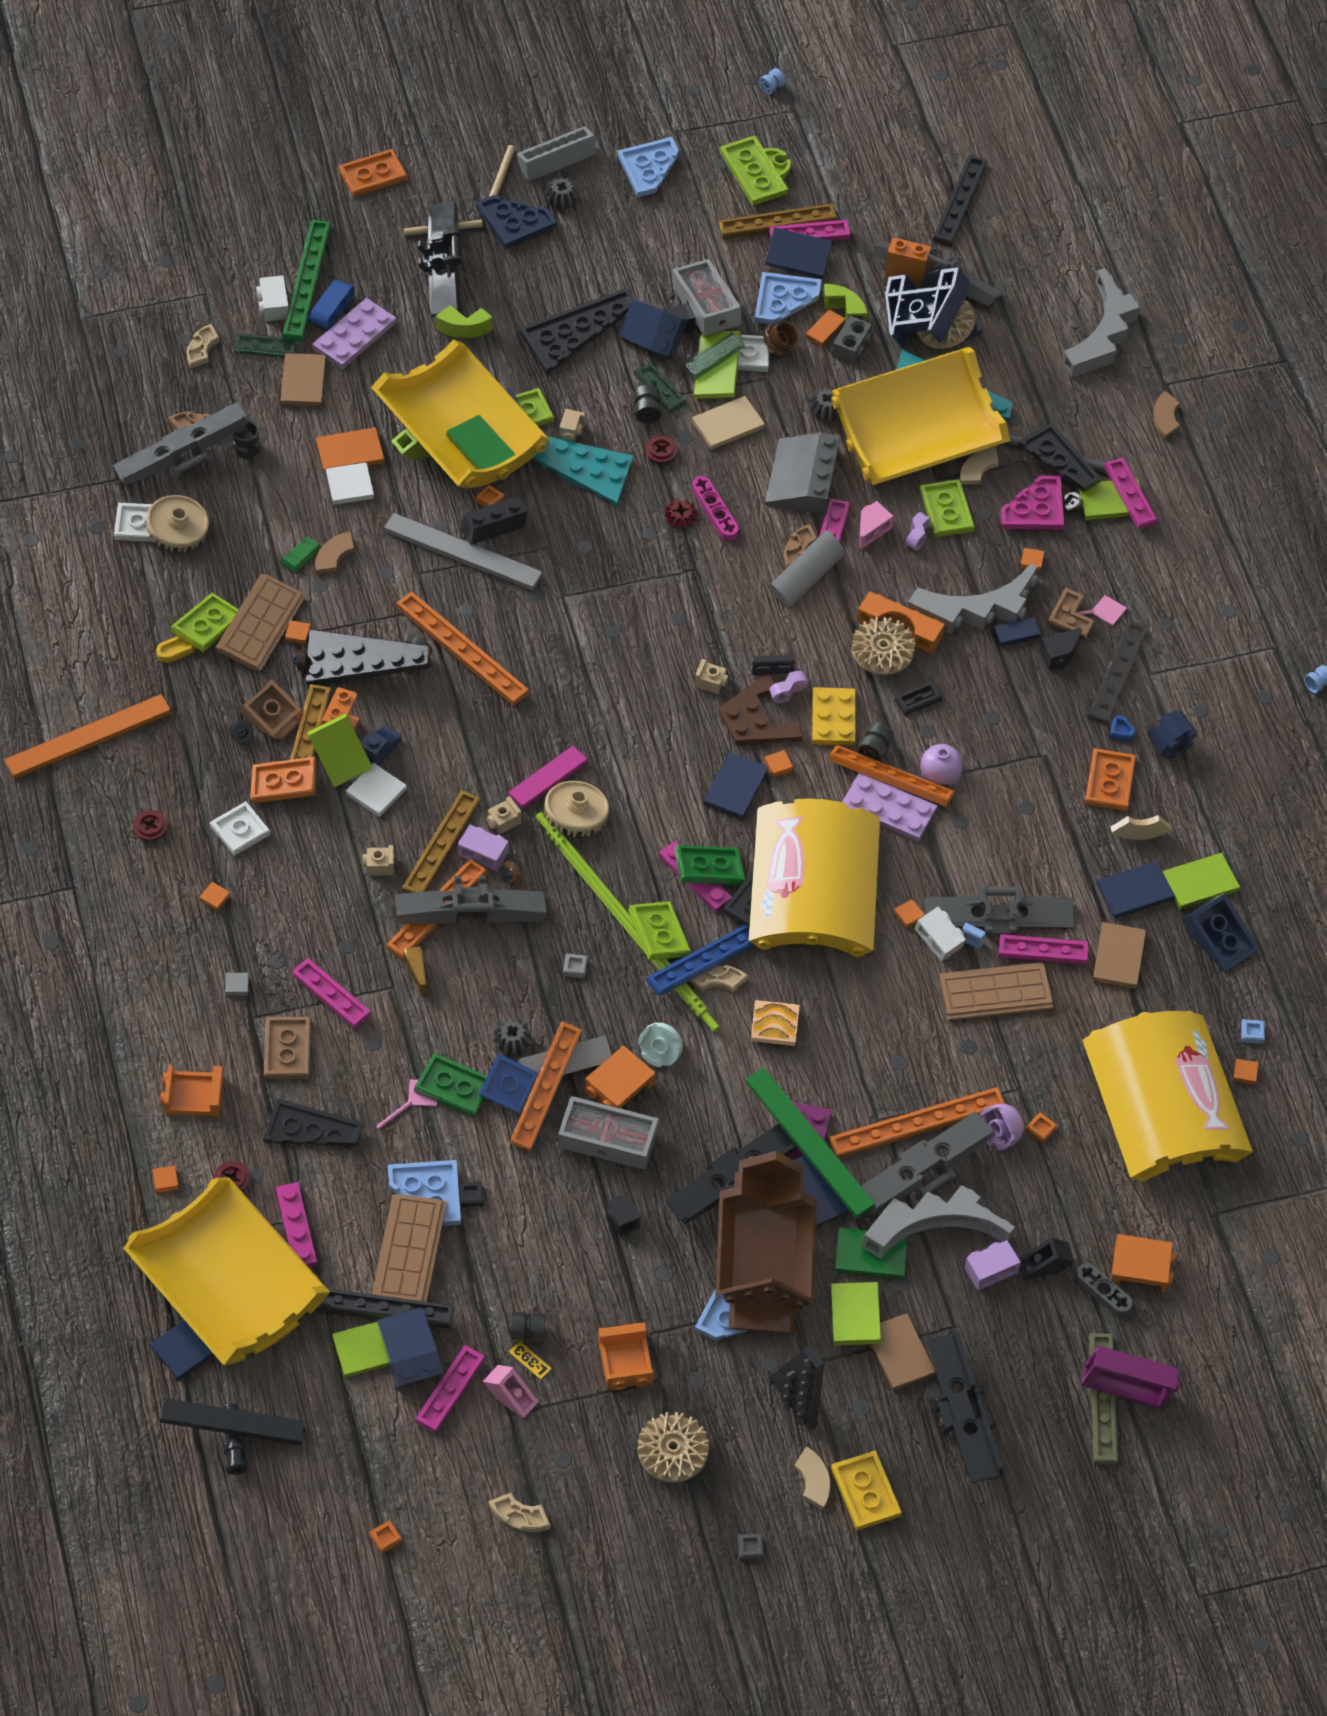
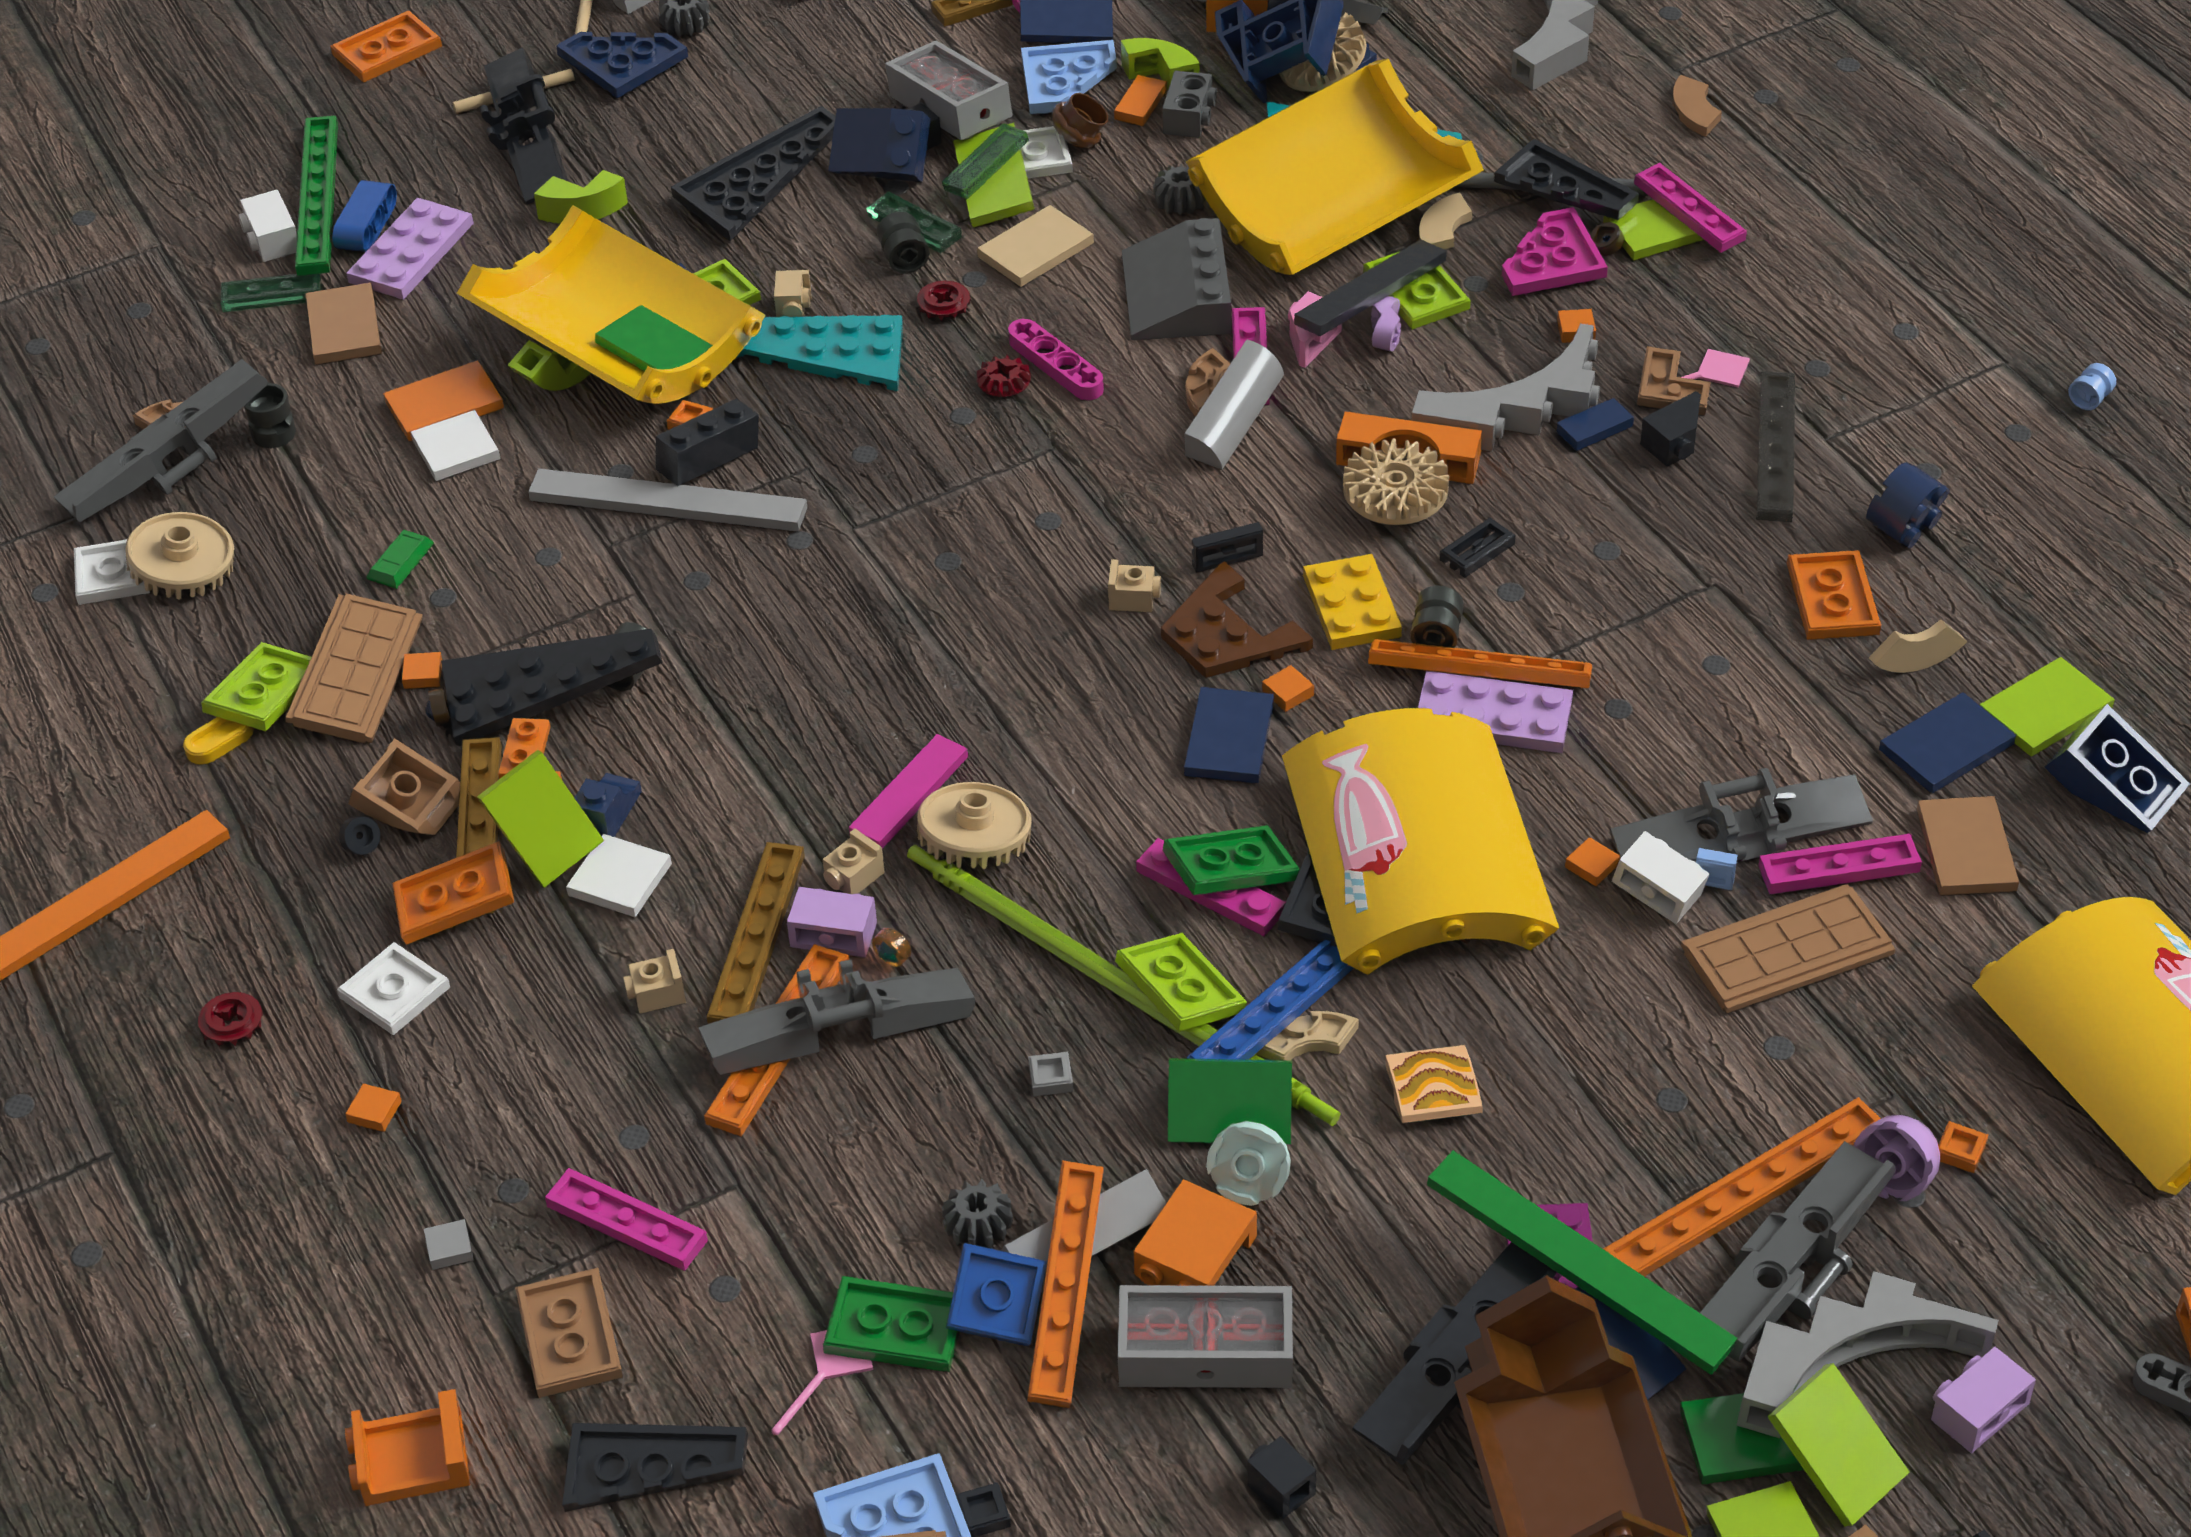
camera: 10 degrees left, 10 degrees down
(200, 345) = (165, 312): tan tile -> none
(332, 552) = (452, 543): medium nougat tile -> none
(415, 965) = (768, 1138): pearl gold slope -> none
(462, 648) = (708, 634): orange plate -> none
(661, 1003) = (1220, 1092): none -> green tile
(795, 682) = (1257, 580): lavender piece -> none
(906, 1270) = (1838, 1444): none -> lime tile
(914, 507) = (1369, 287): none -> black tile
(941, 765) = (1556, 629): lavender cylinder -> none
(1046, 1259) = (2074, 1365): black slope -> none
(1121, 729) = (1819, 522): blue tile -> none

